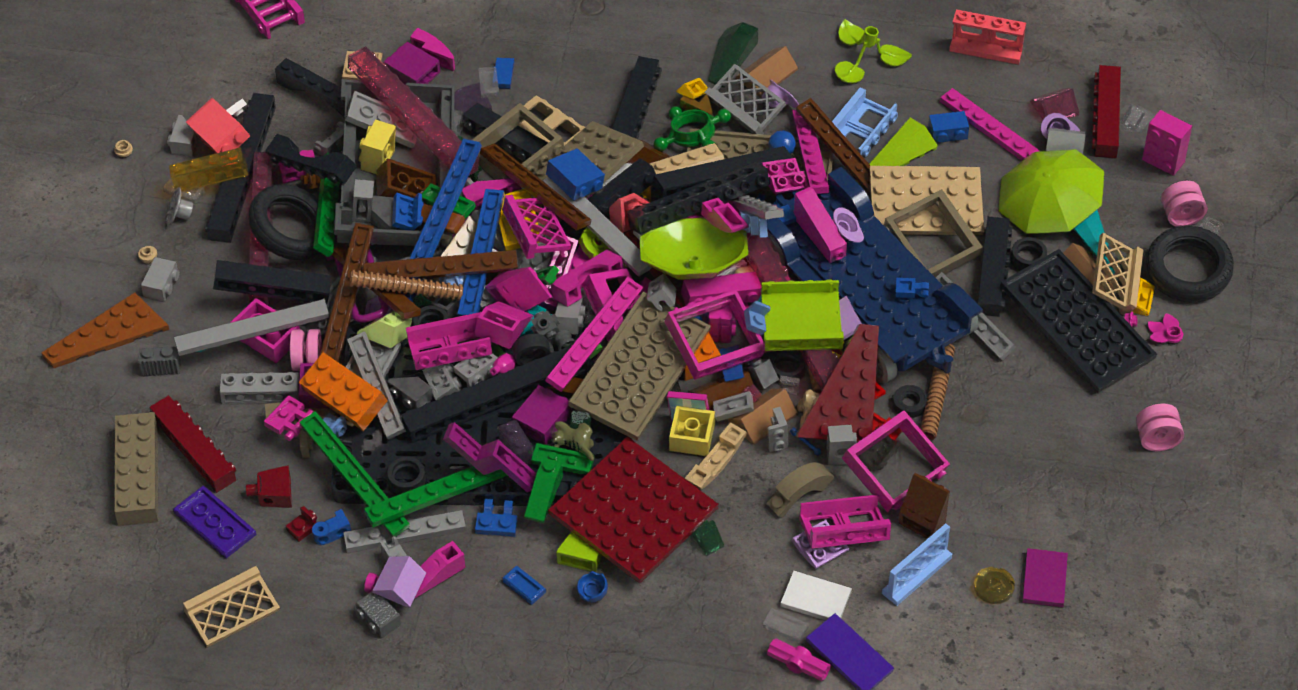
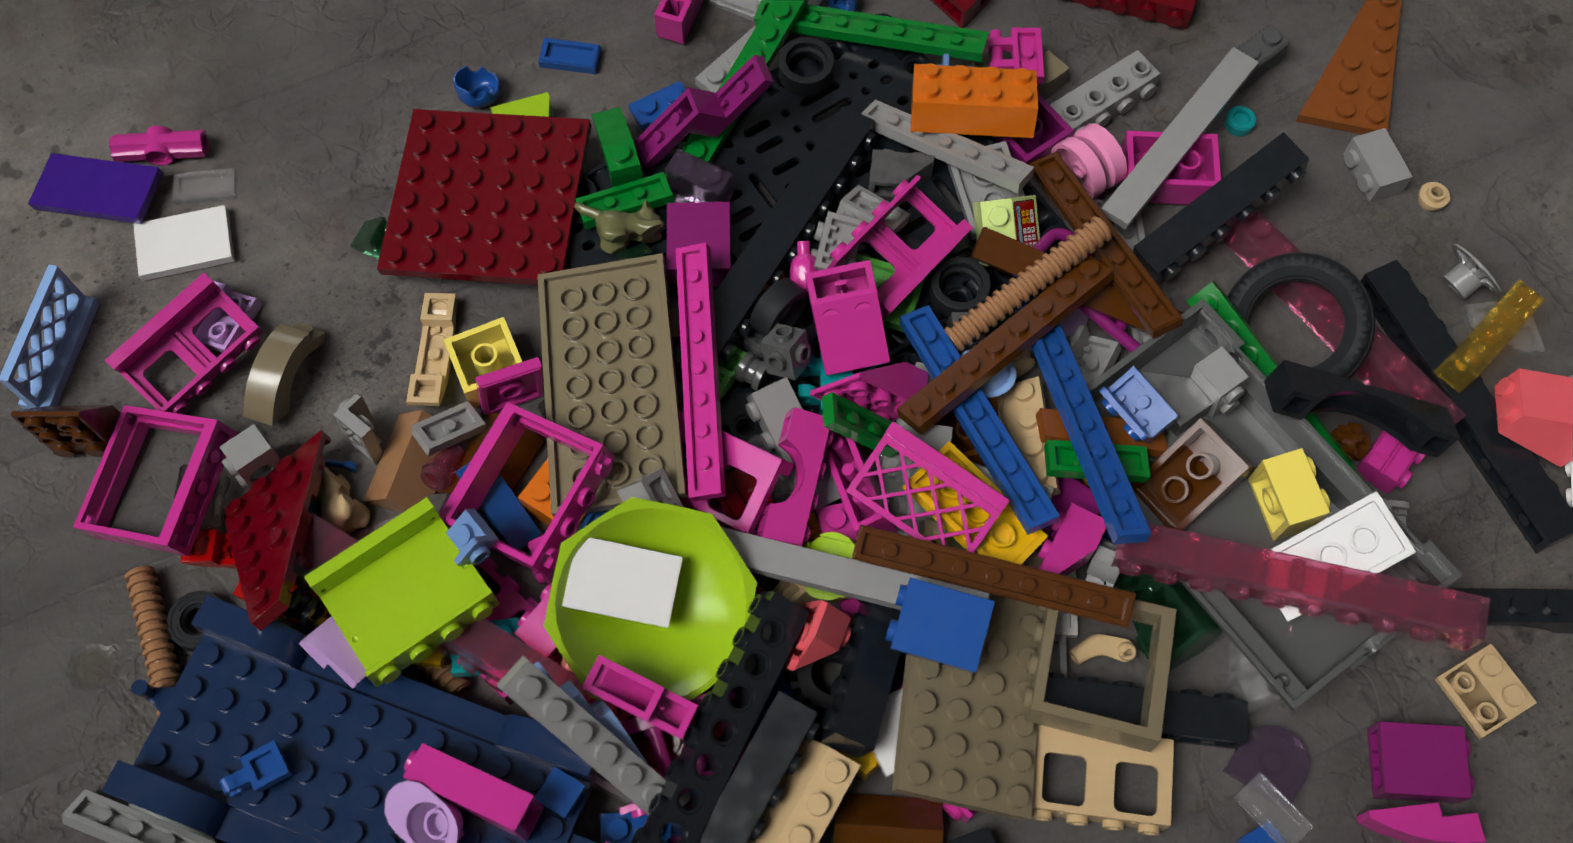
camera: 145 degrees right, 15 degrees up
(698, 257) = (623, 582): none -> white tile

